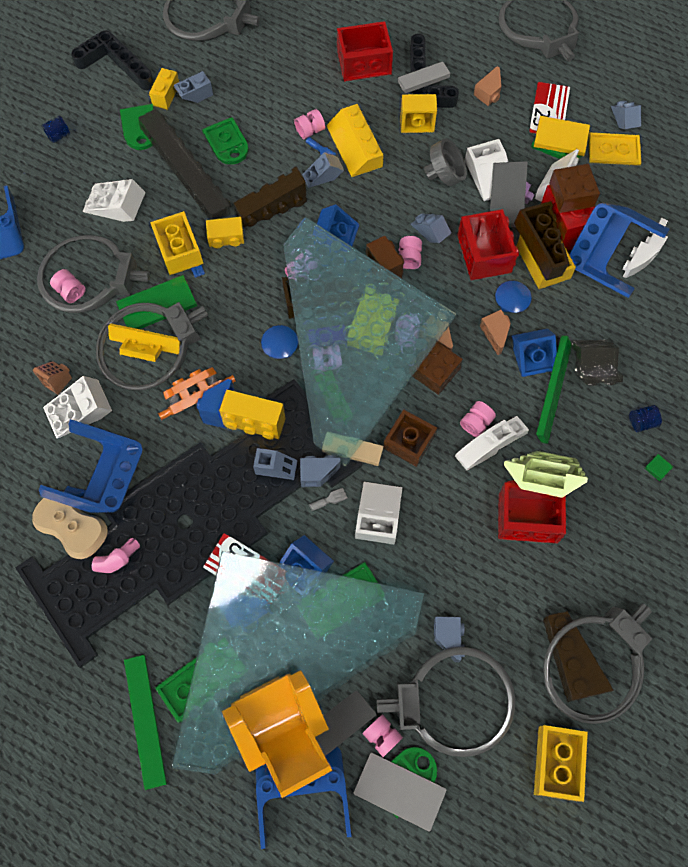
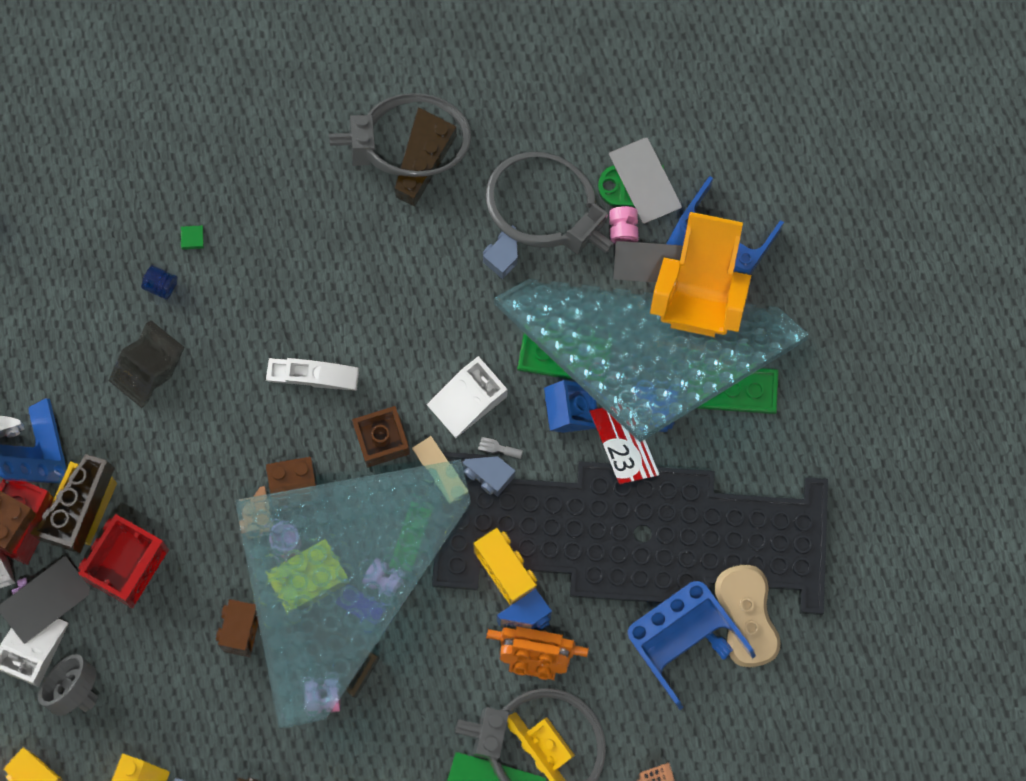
camera: 140 degrees left, 5 degrees up
(80, 402) = (657, 731): white slope -> none
(116, 559) = (731, 539): bright pink arm -> none
(145, 722) = (803, 394): green tile -> none
(274, 464) = (524, 508): sand blue slope -> none
(279, 342) = (410, 640): blue dish -> none
(338, 223) = (248, 715): blue slope -> none
(410, 250) = (201, 623): bright pink wheel -> none
(432, 227) = (152, 635): sand blue slope -> none
(478, 418) = (304, 404): bright pink wheel -> none
(496, 329) = (200, 472): nougat slope -> none
(513, 296) = (148, 495): blue dish -> none
(530, 515) = (342, 285): red container -> none
(535, 351) = (187, 423): blue slope -> none
(547, 473) = (299, 295): yellowish green wedge -> none
(554, 389) = (207, 375): green tile -> none
(561, 763) = (507, 97): yellow brick -> none

